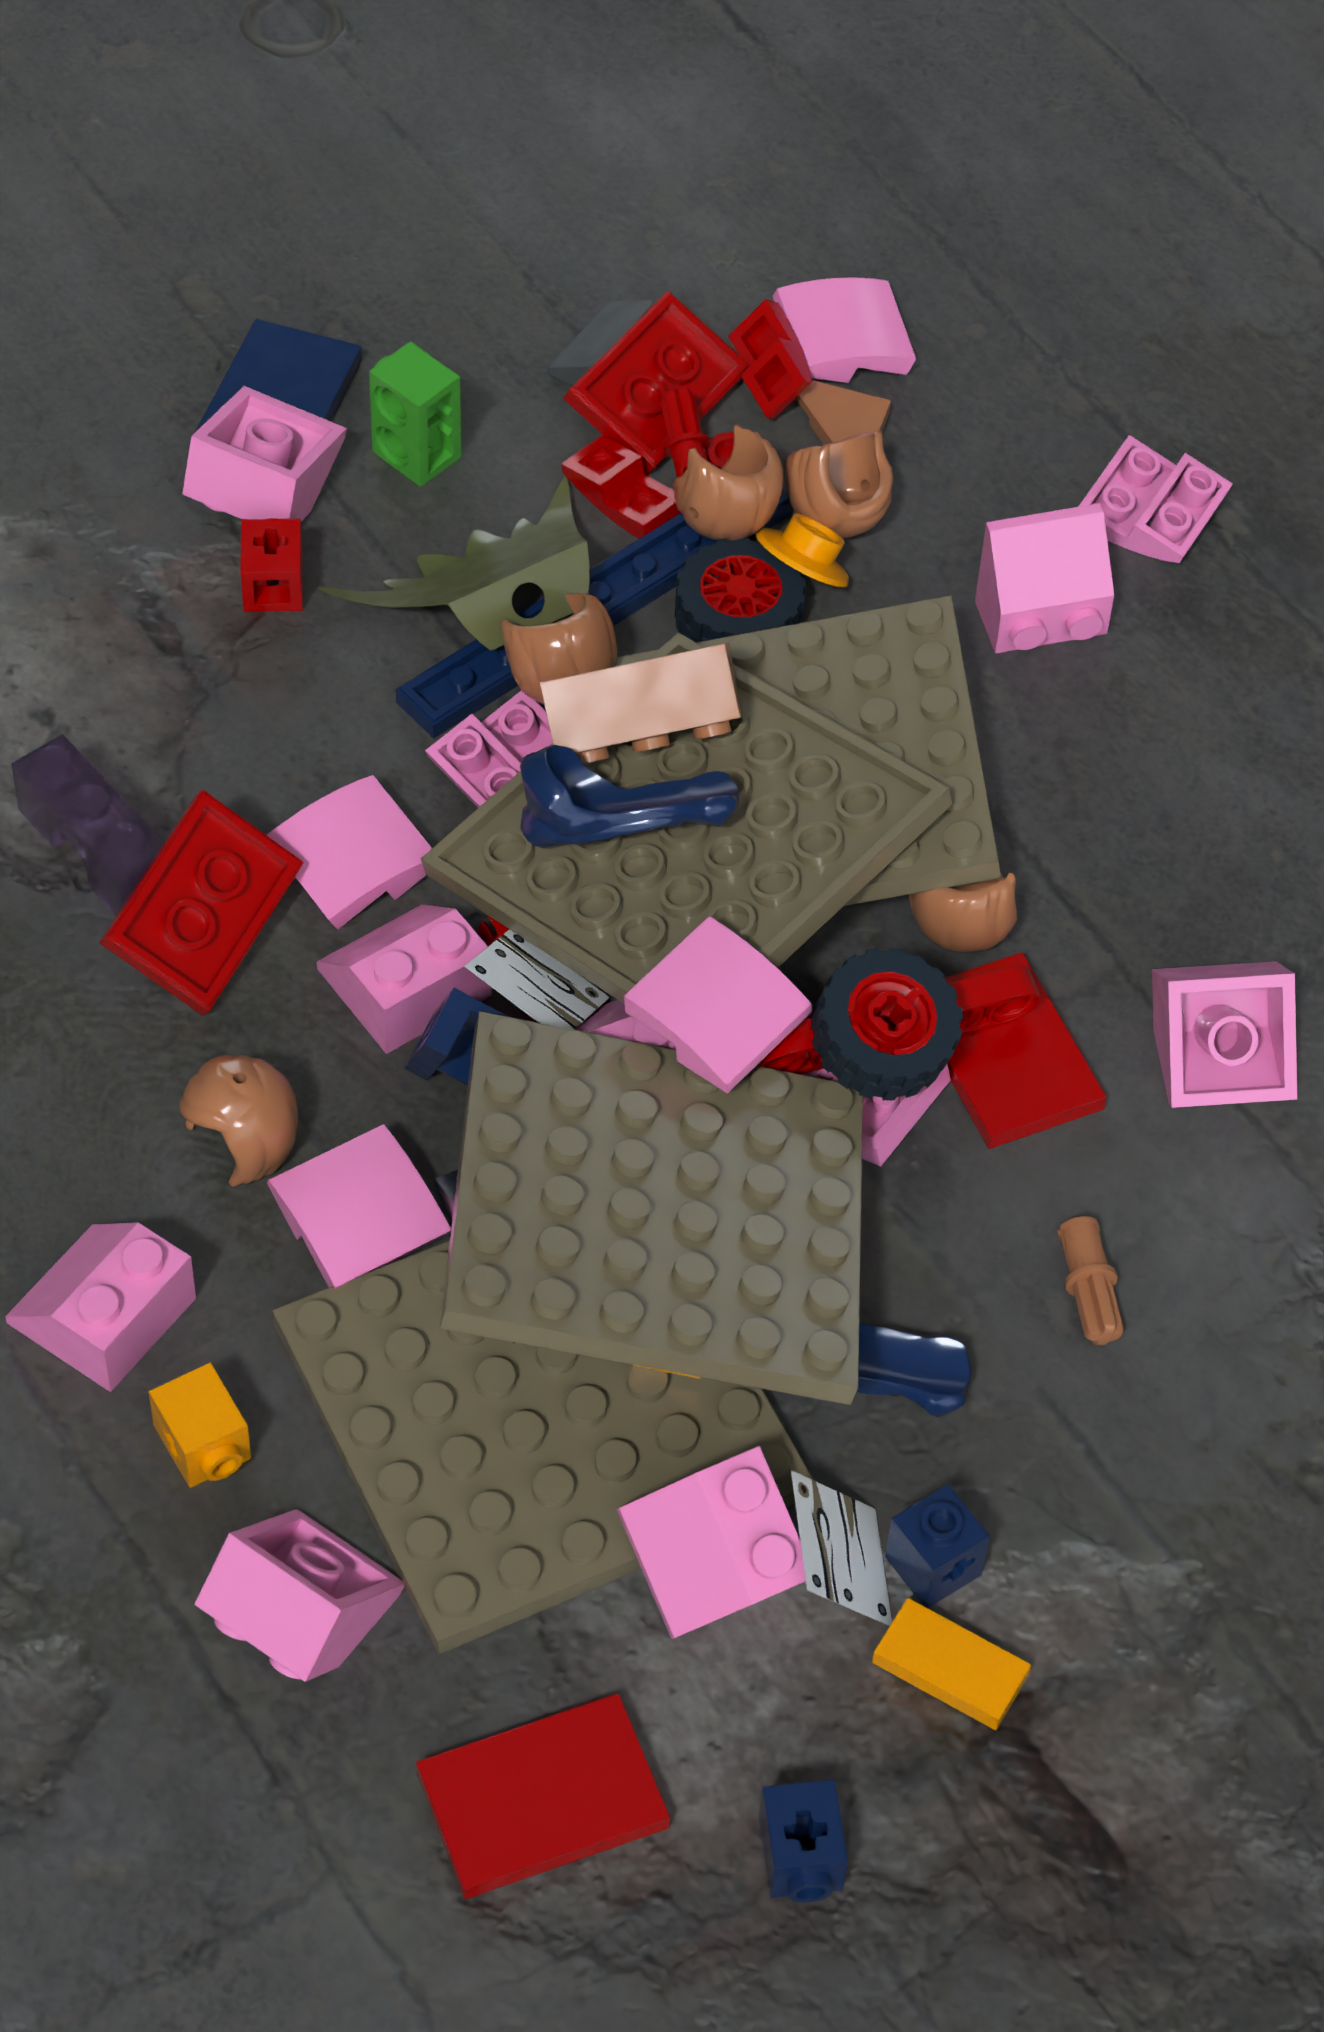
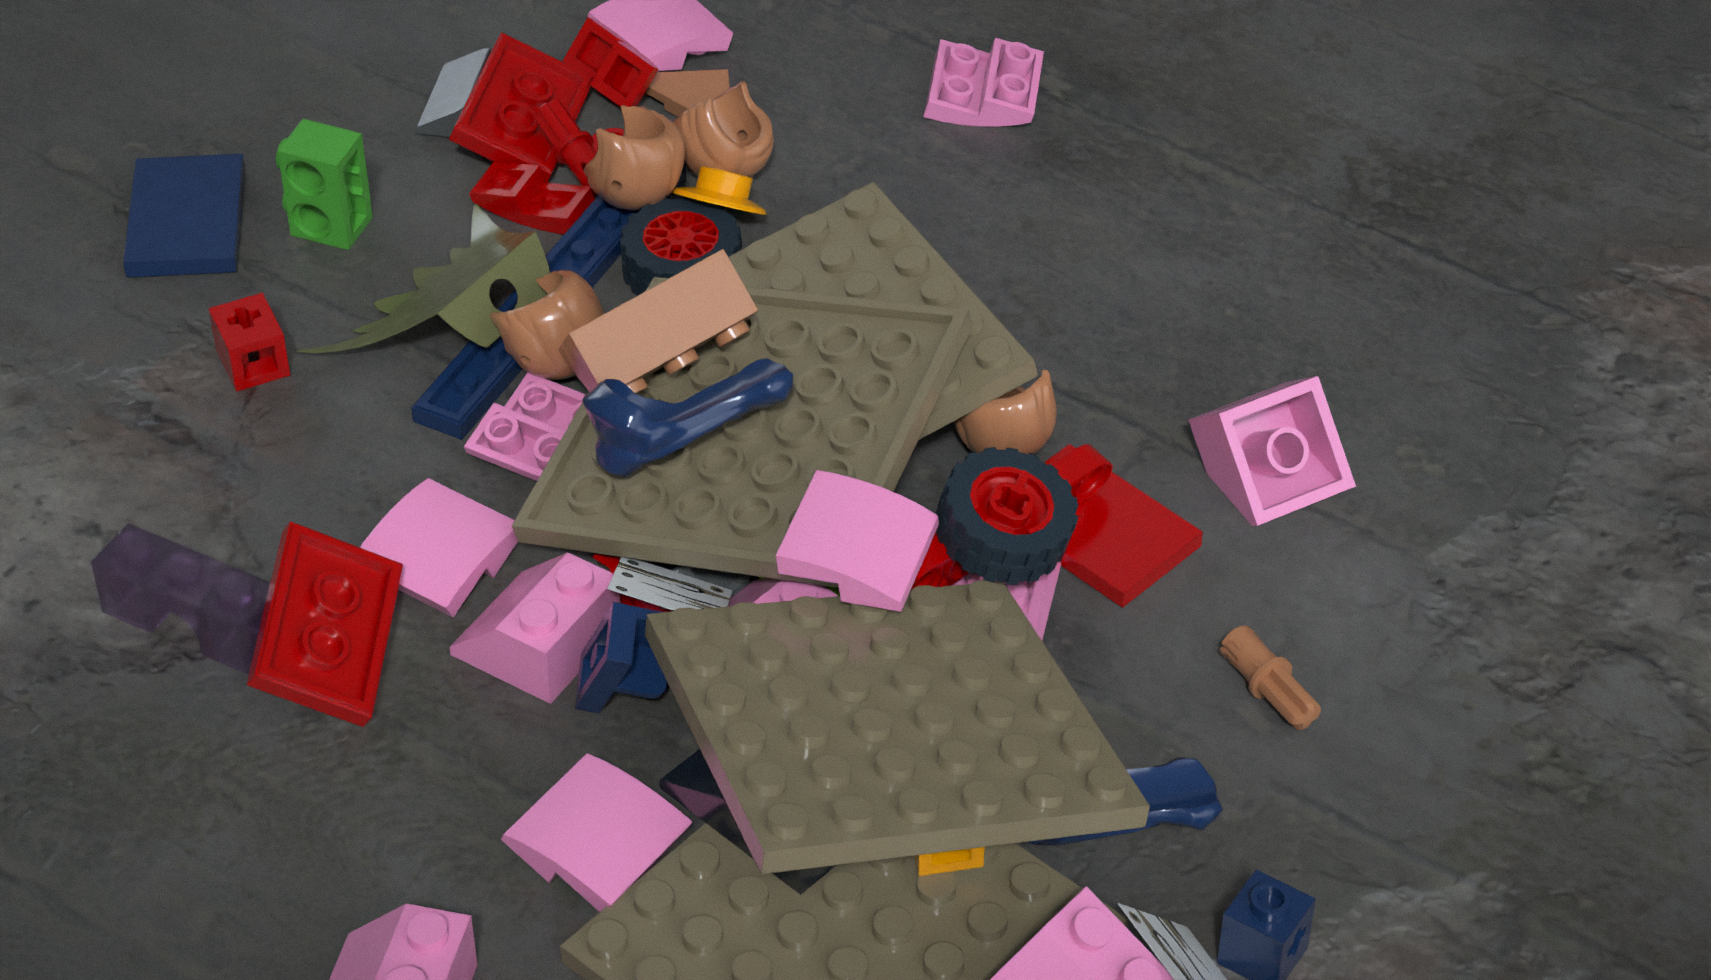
camera: 20 degrees left, 10 degrees down
(249, 1107) = (459, 772): nougat piece -> none
(261, 458) = (198, 259): bright pink slope -> none
(1045, 578) = (937, 154): bright pink slope -> none

